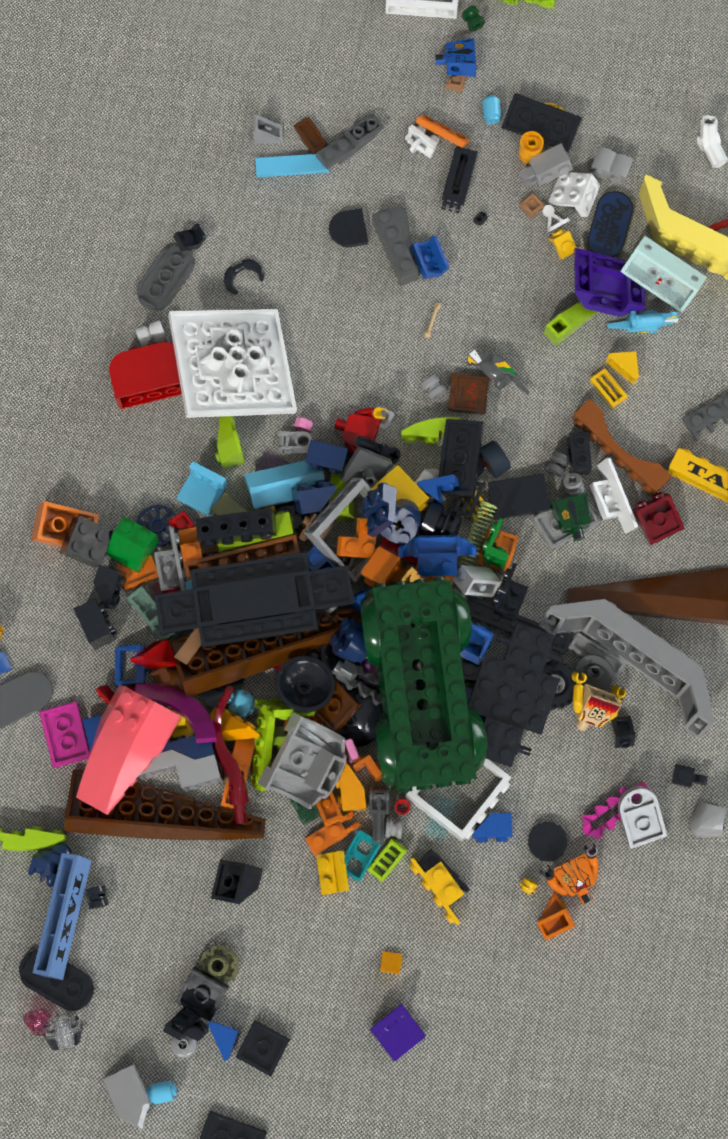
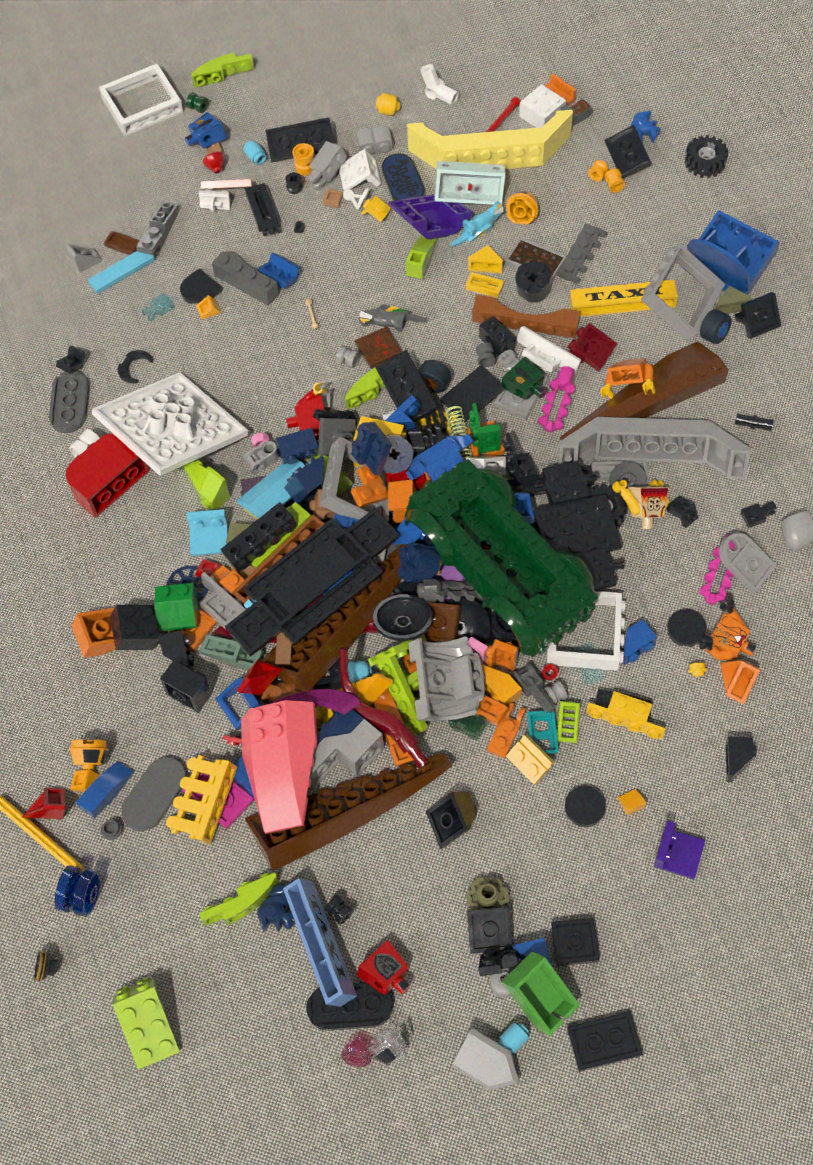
camera: 30 degrees left, 15 degrees down
(55, 740) = (212, 803): none -> yellow fence
(99, 972) = (385, 970): none -> red torso
(200, 1072) = (540, 993): none -> bright green piece
(304, 226) = (159, 305): none -> clear light blue plate
(345, 255) = (208, 307): none -> light orange slope
(350, 941) = (585, 806): none -> black tile
(447, 98) = (214, 161): none -> red brick
(503, 170) = (294, 183): none -> black wheel
(506, 984) = (739, 755): none -> black slope
(608, 536) = (565, 383): none -> dark pink sword
(650, 131) = (387, 104): none -> yellow head
(650, 406) = (533, 281): none -> black brick
(670, 568) = (629, 372): none -> orange torso
(673, 391) = (528, 251): none -> tile
(697, 330) = (522, 207): none -> light orange cone

